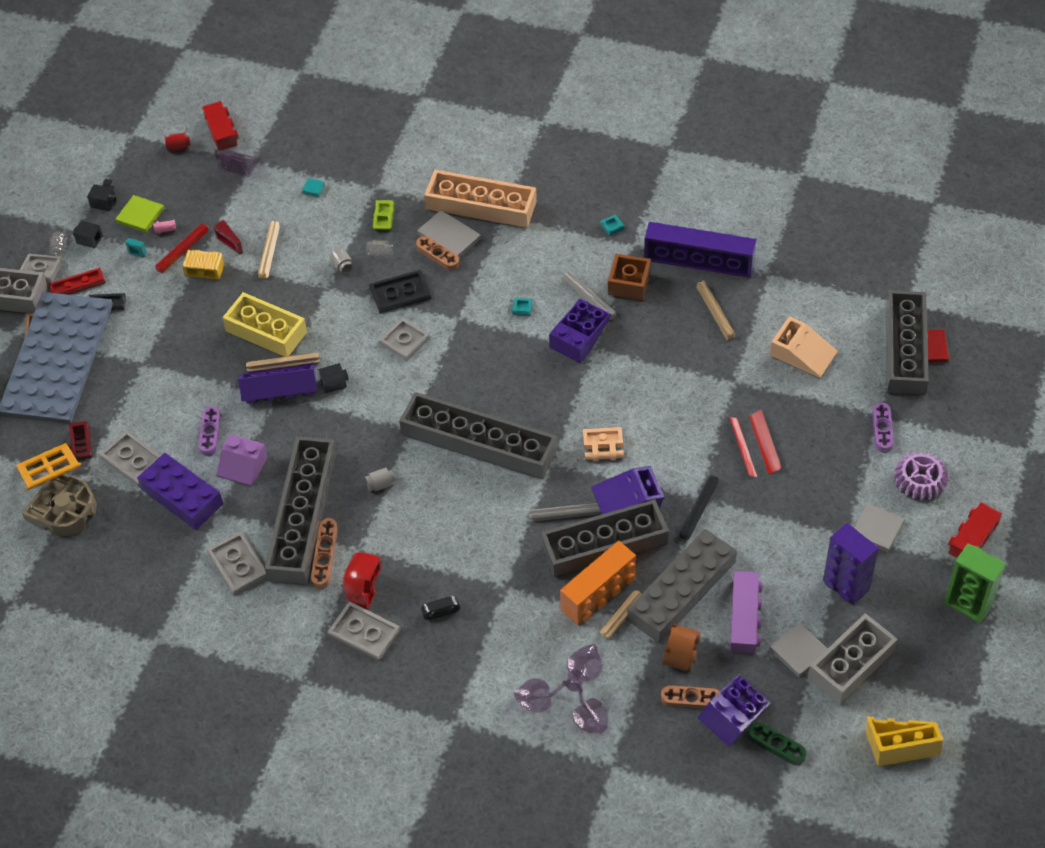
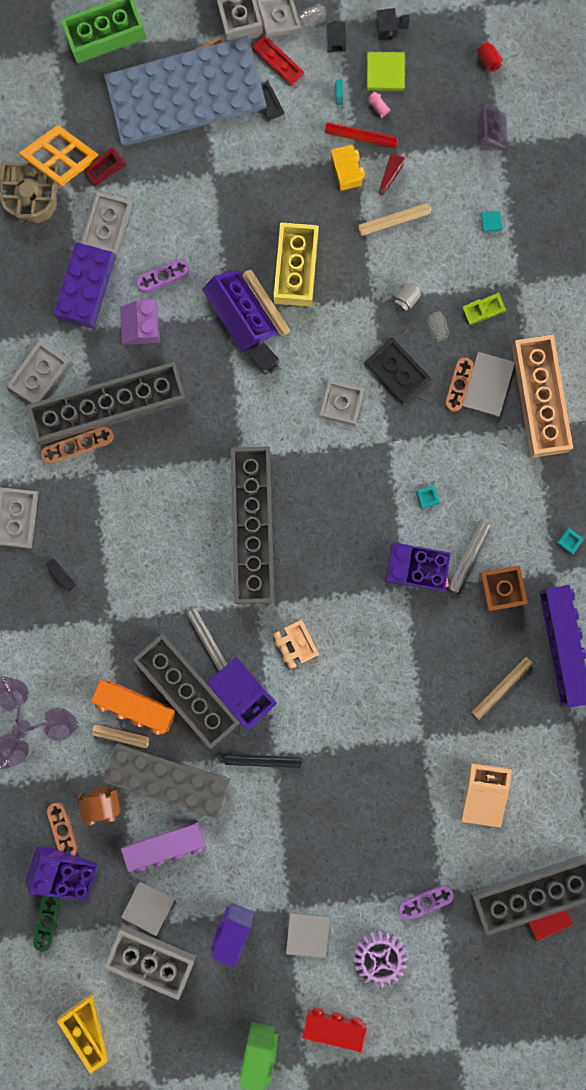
camera: 70 degrees right, 30 degrees up
(220, 125) = (529, 87): red brick -> none
(360, 578) = (55, 493): red brick -> none
(379, 479) = (170, 457): light grey brick -> none
(764, 441) = (362, 794): sticker -> none

